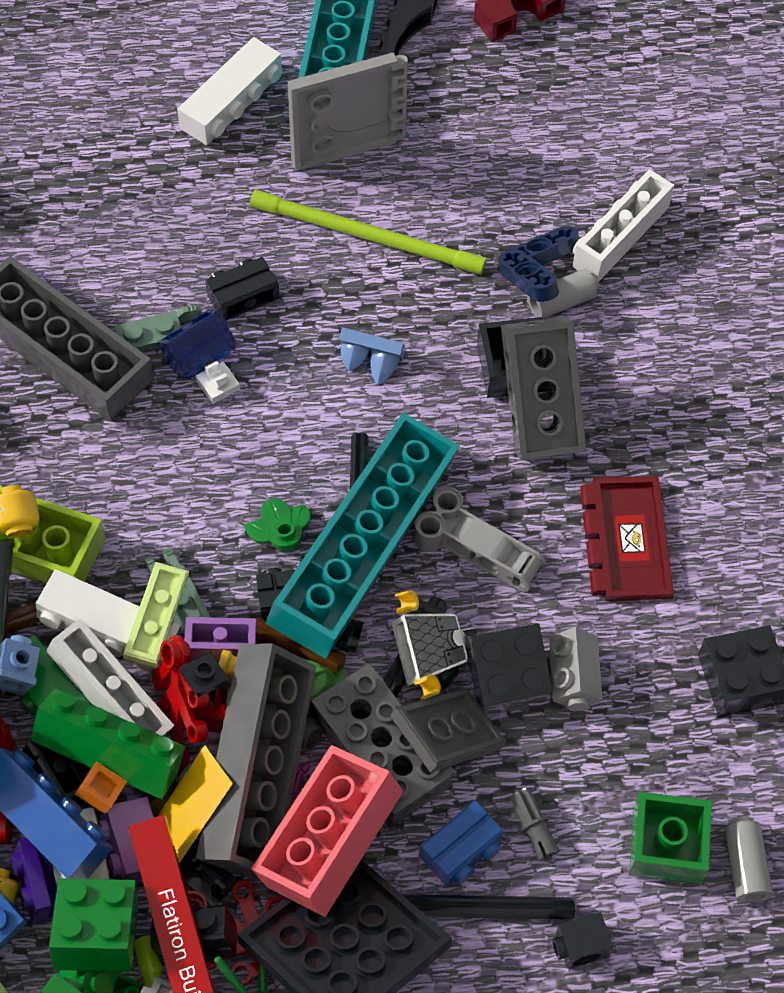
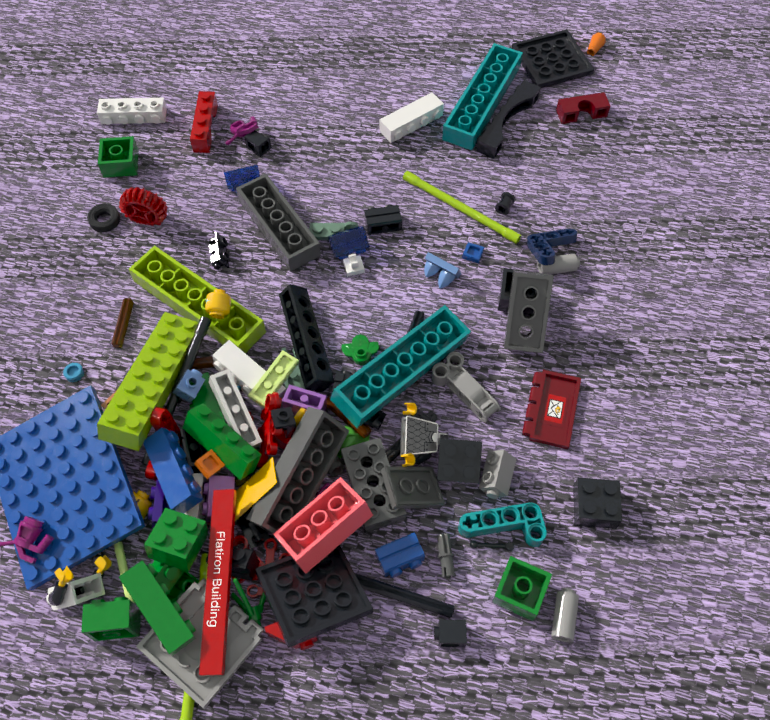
camera: 20 degrees right, 0 degrees up
(182, 530) = (306, 338): none -> black brick
(347, 110) = (468, 138): light grey hinge -> none
(414, 308) = (473, 252): none -> blue tile
(441, 208) = (505, 203): none -> black bush
(606, 748) = (497, 515): none -> teal beam
(623, 224) = (604, 235): white brick -> none
(627, 780) = (509, 546): none -> black hinge

